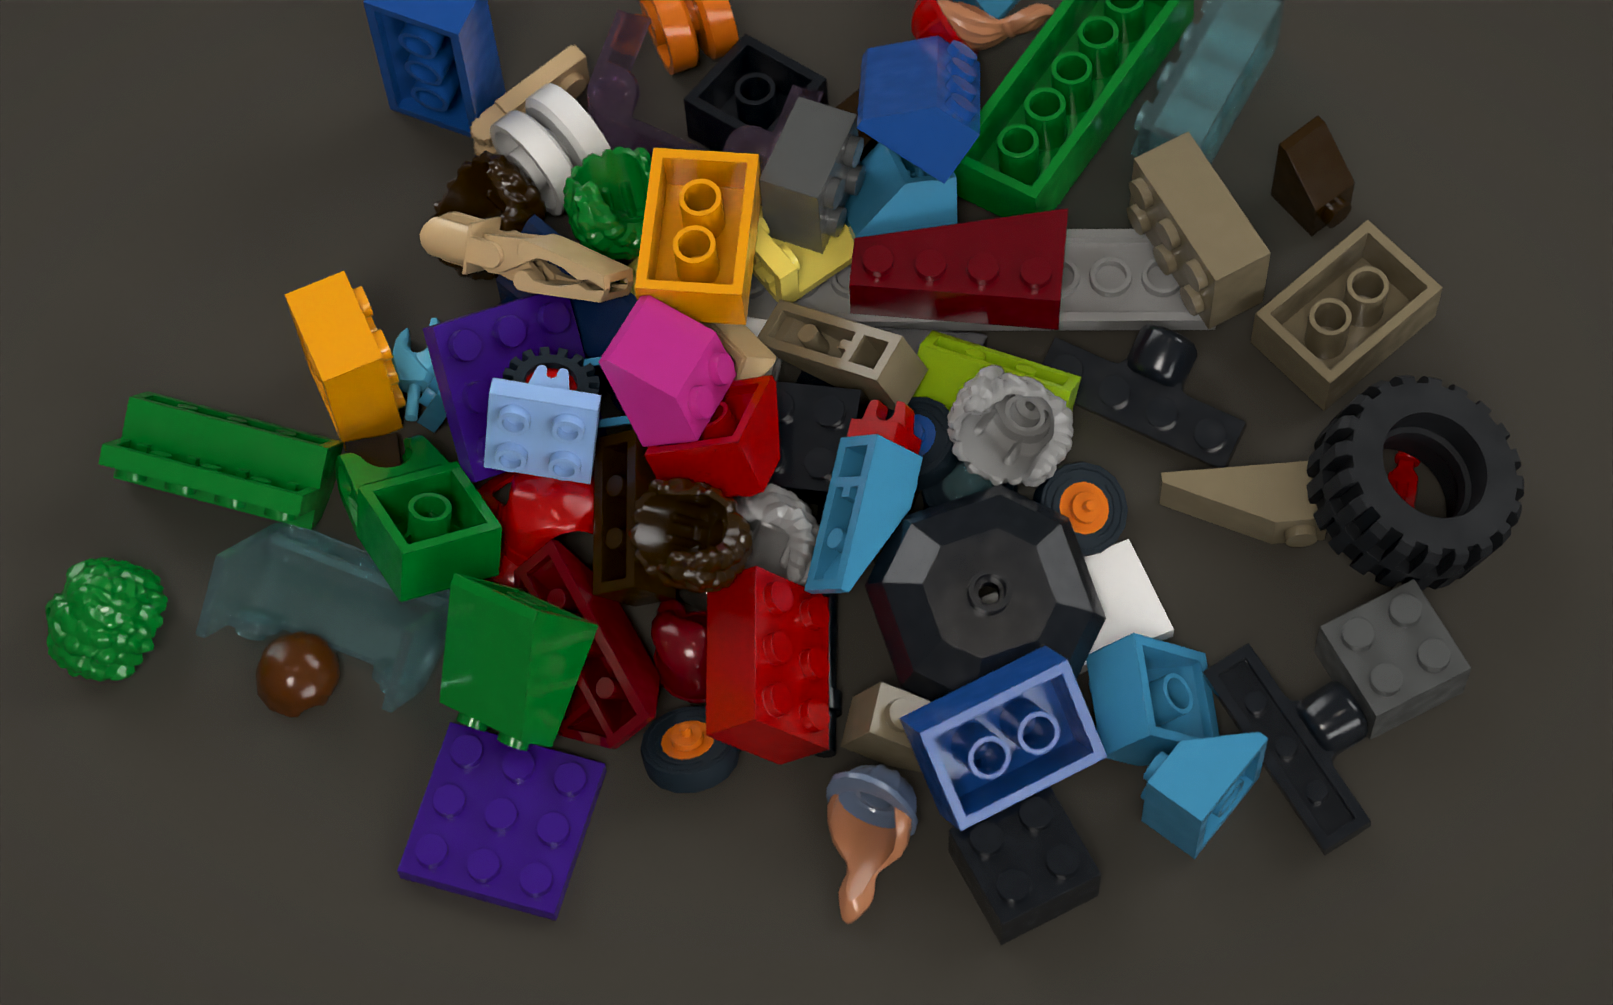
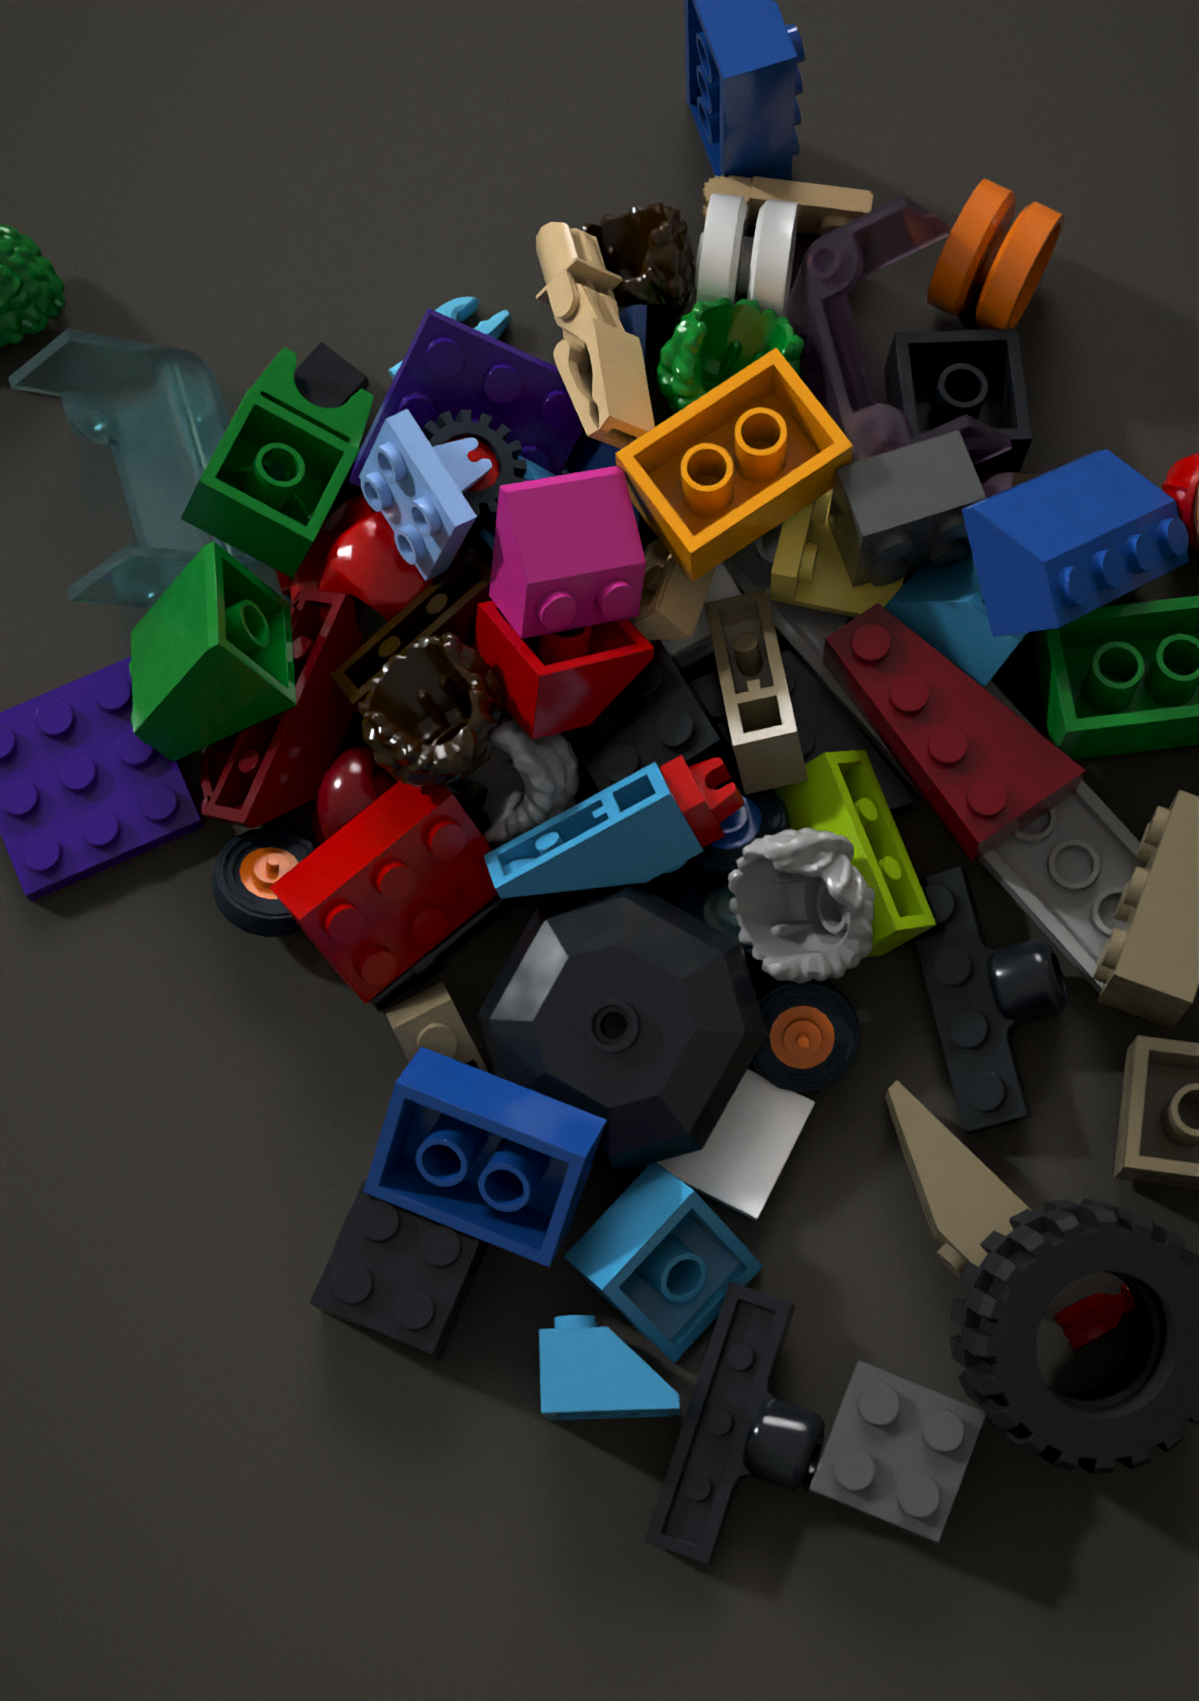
camera: 55 degrees right, 10 degrees up
(224, 459) = (211, 257): green brick -> none
(297, 673) = (76, 491): reddish brown hair -> none
(347, 357) = (371, 271): light orange brick -> none
(870, 826) = (329, 1101): piece -> none

